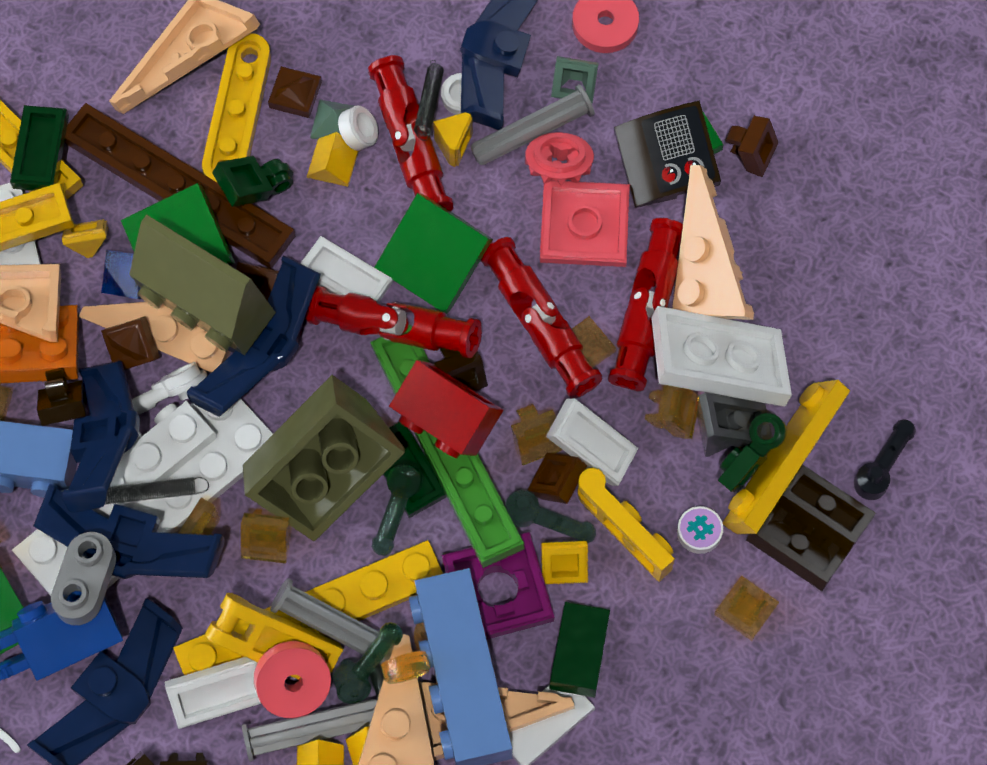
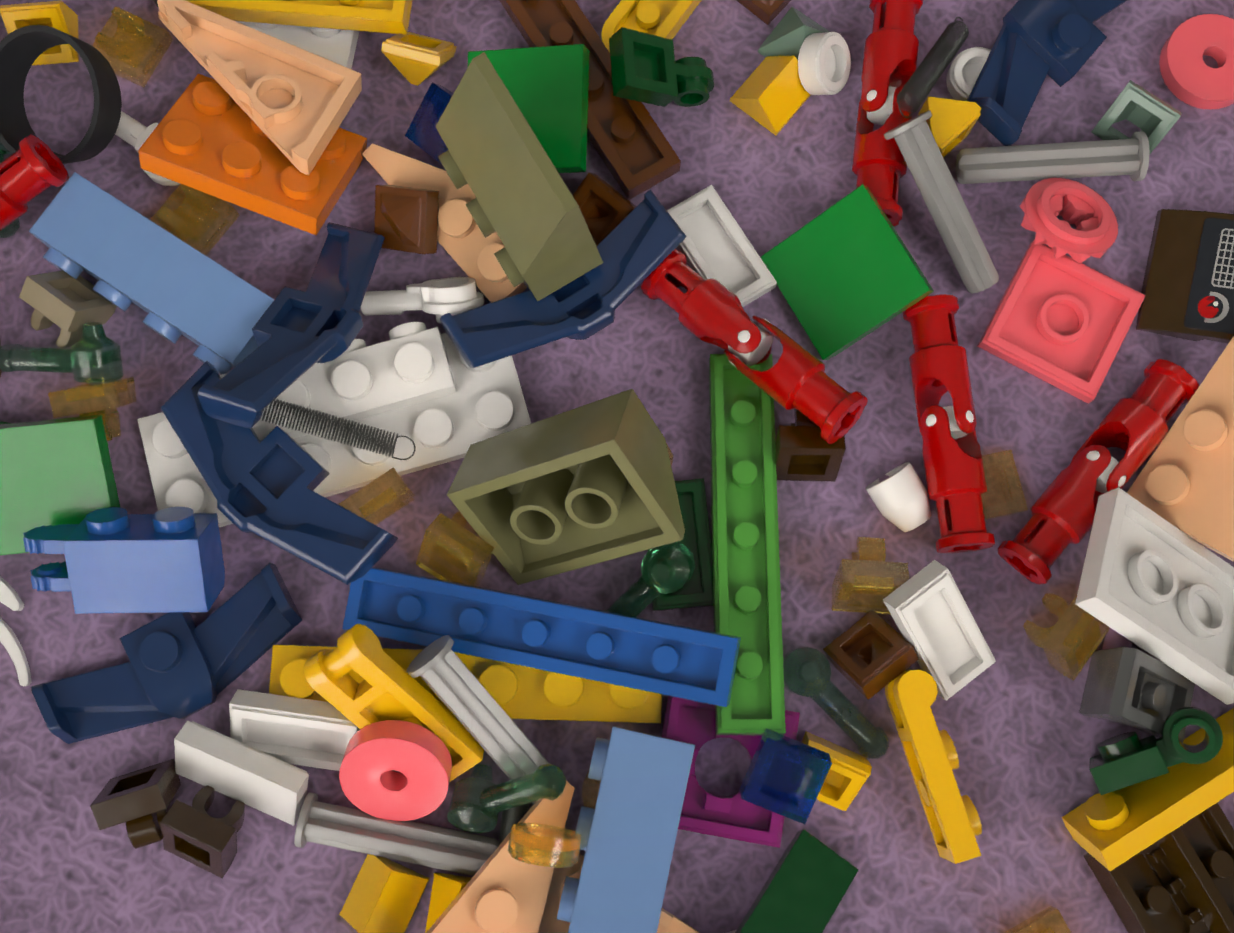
camera: 25 degrees right, 10 degrees up
(60, 399) = (280, 253): dark brown tile -> none
(84, 575) = (185, 517): light grey plate -> none
(191, 732) = (240, 772): none -> white tile
(348, 553) = (547, 635): none -> blue plate
(445, 409) = (764, 501): red brick -> none
(475, 182) = (944, 203): none -> light grey axle
(533, 376) = (901, 498): none -> white hose
(534, 567) = (785, 776): none -> clear blue plate
(700, 529) = (1028, 814): tile -> none

